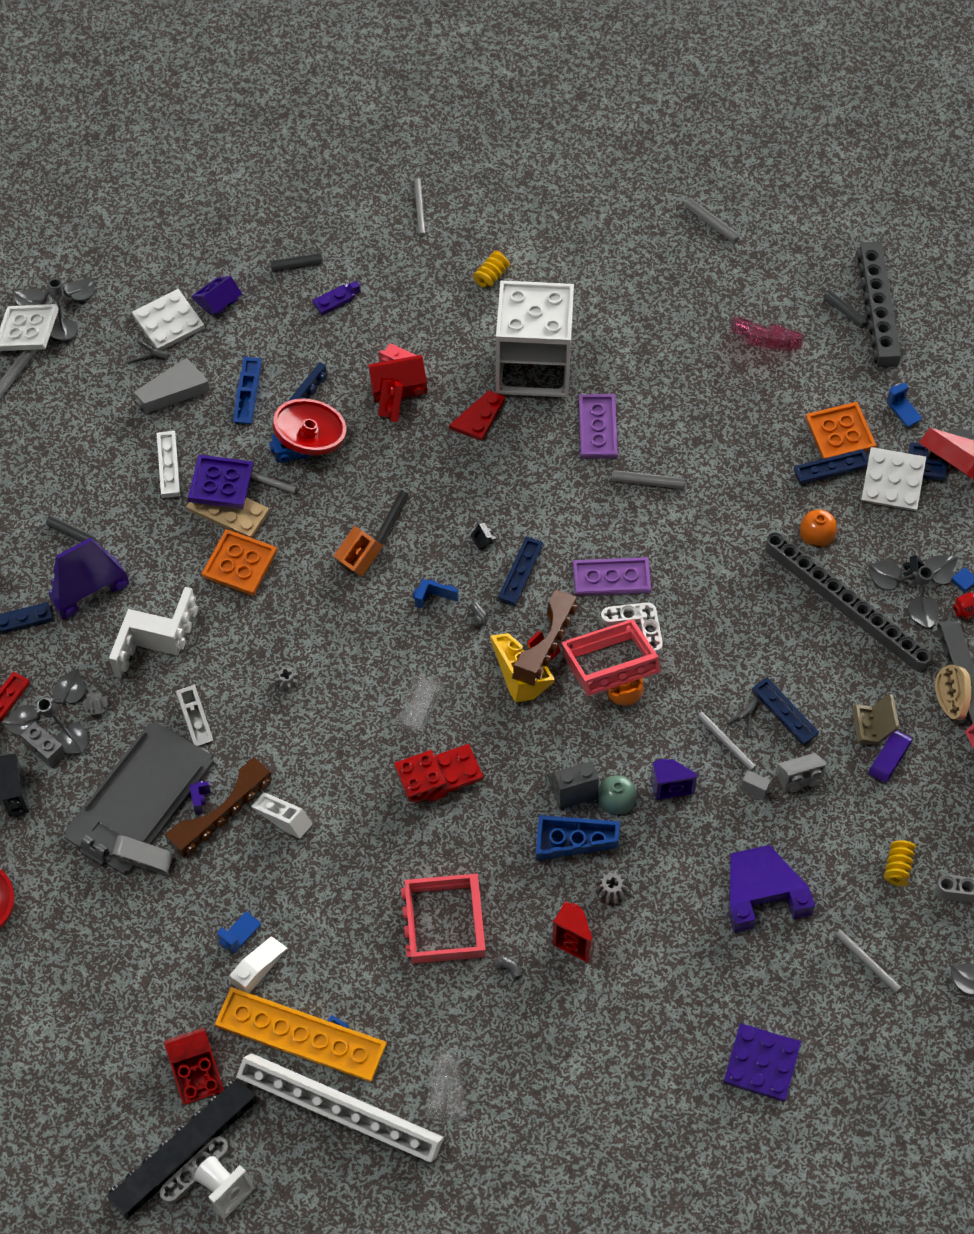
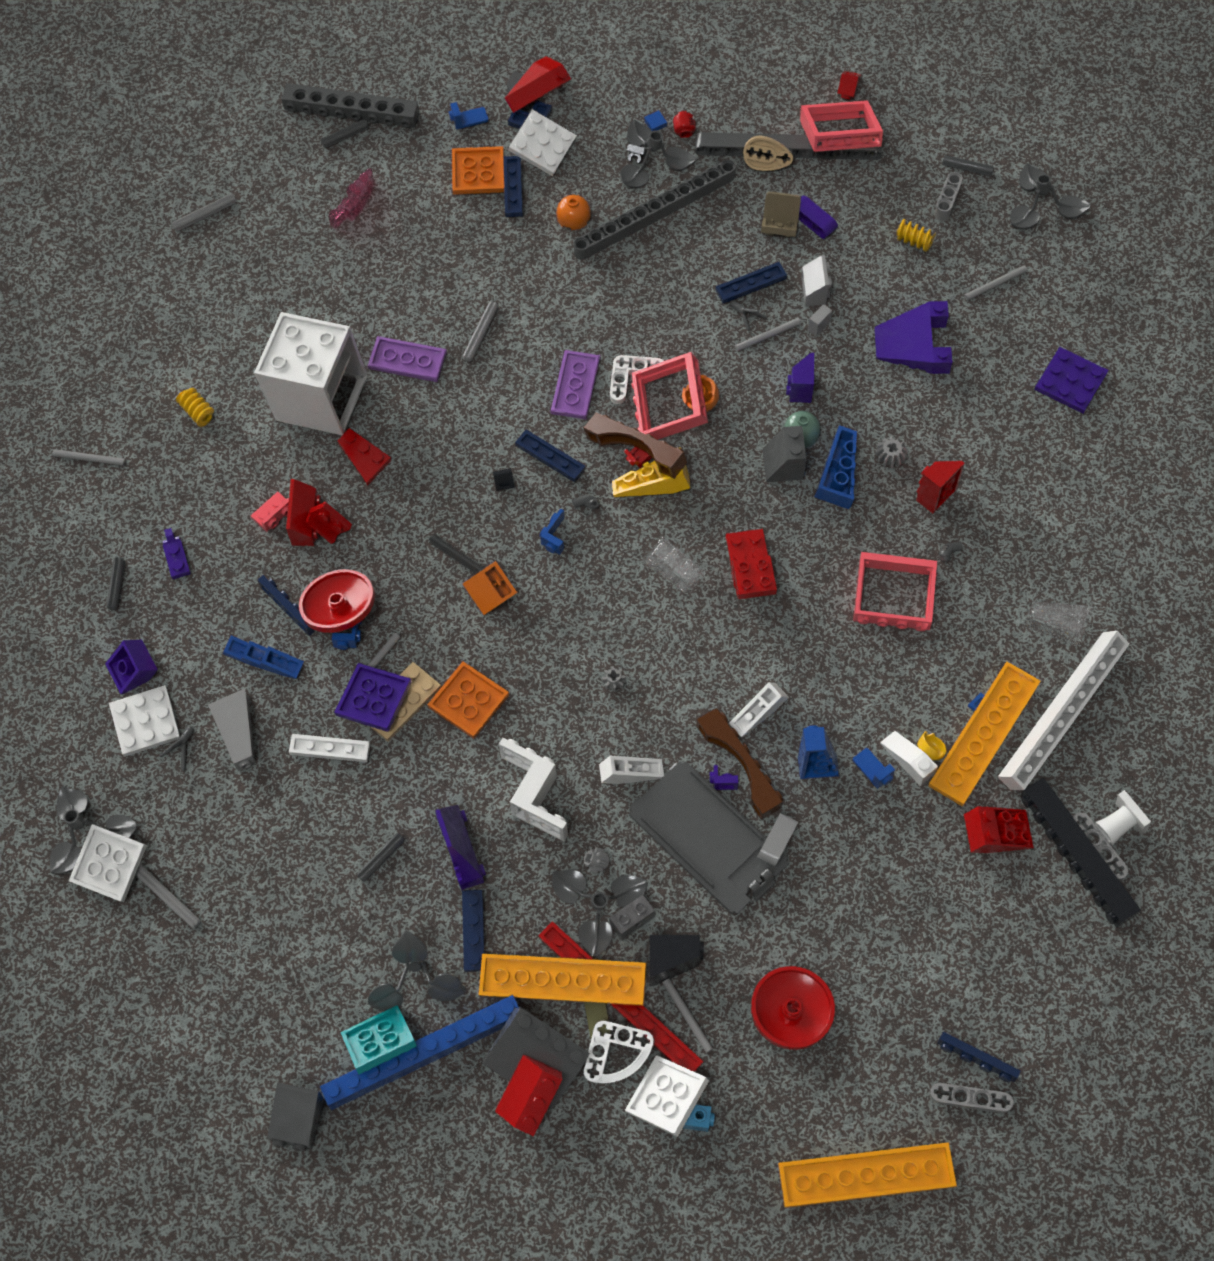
camera: 75 degrees left, 5 degrees up
(231, 866) = (816, 754): none -> blue wedge
(272, 982) = (932, 746): none -> yellow hair

